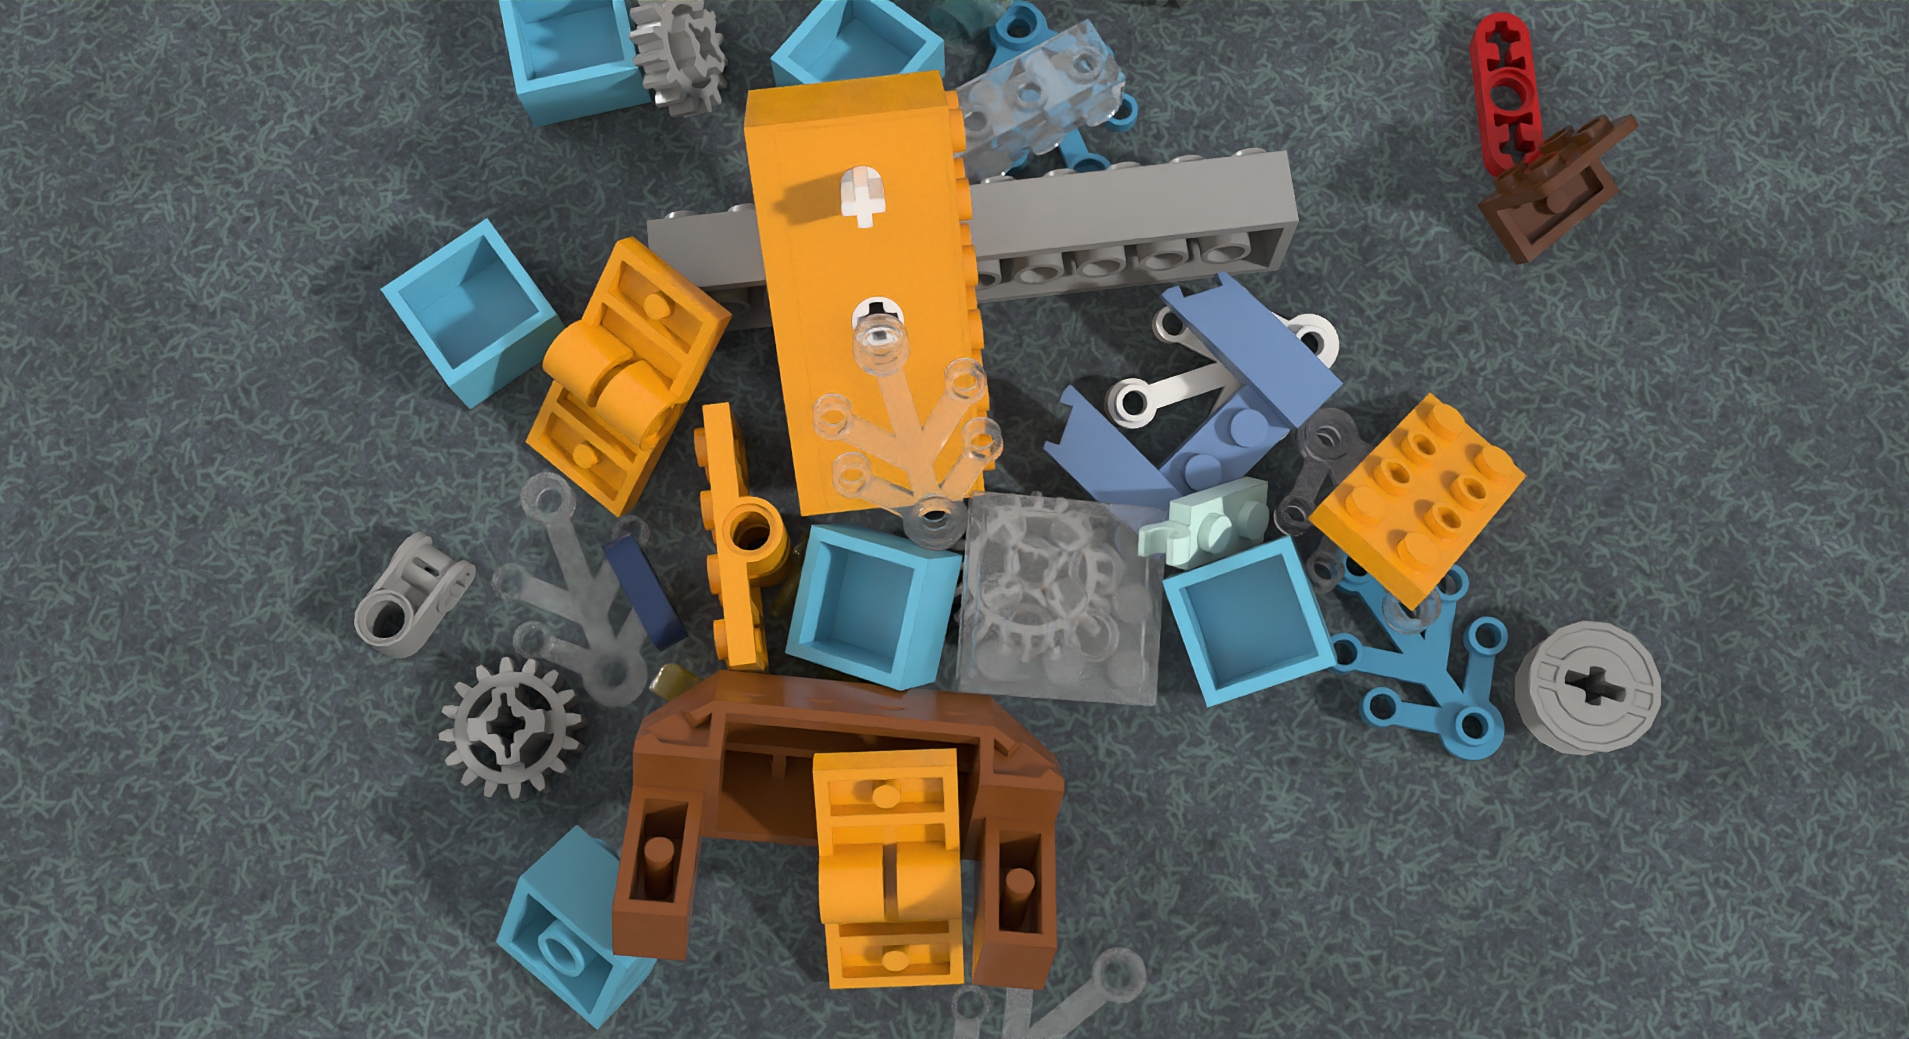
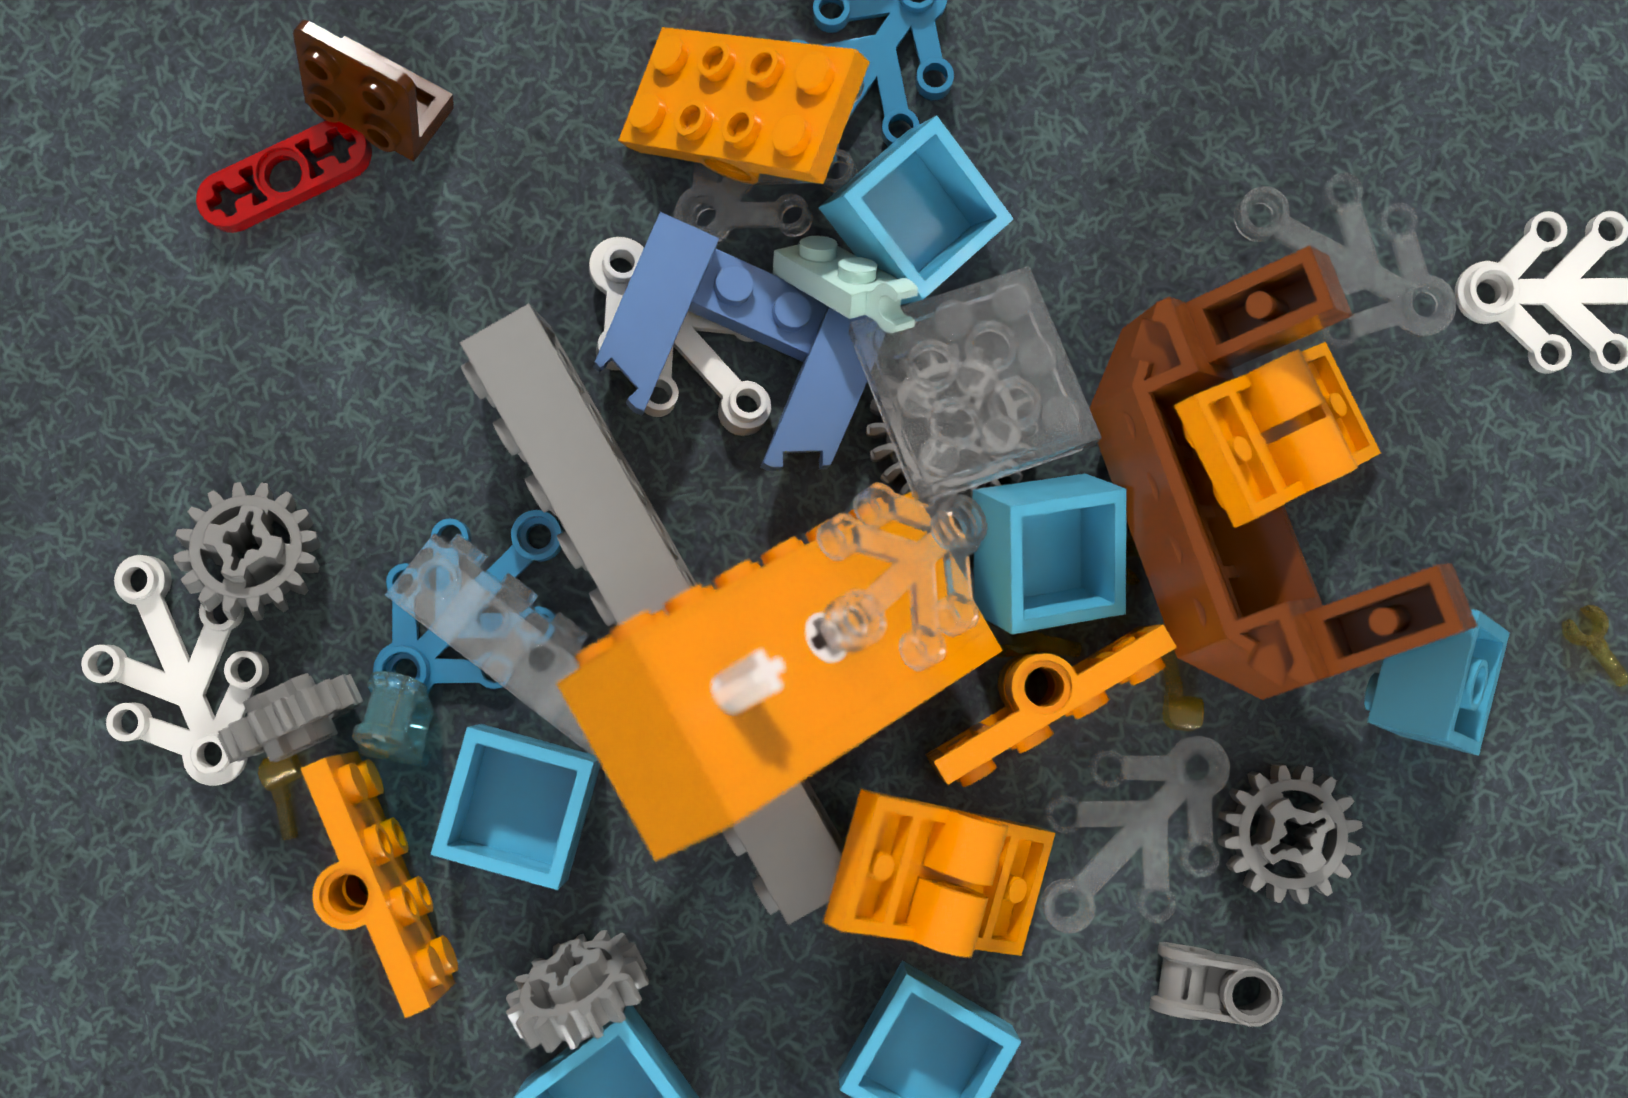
camera: 120 degrees left, 10 degrees up
(645, 591) = (1120, 770): dark blue beam -> none

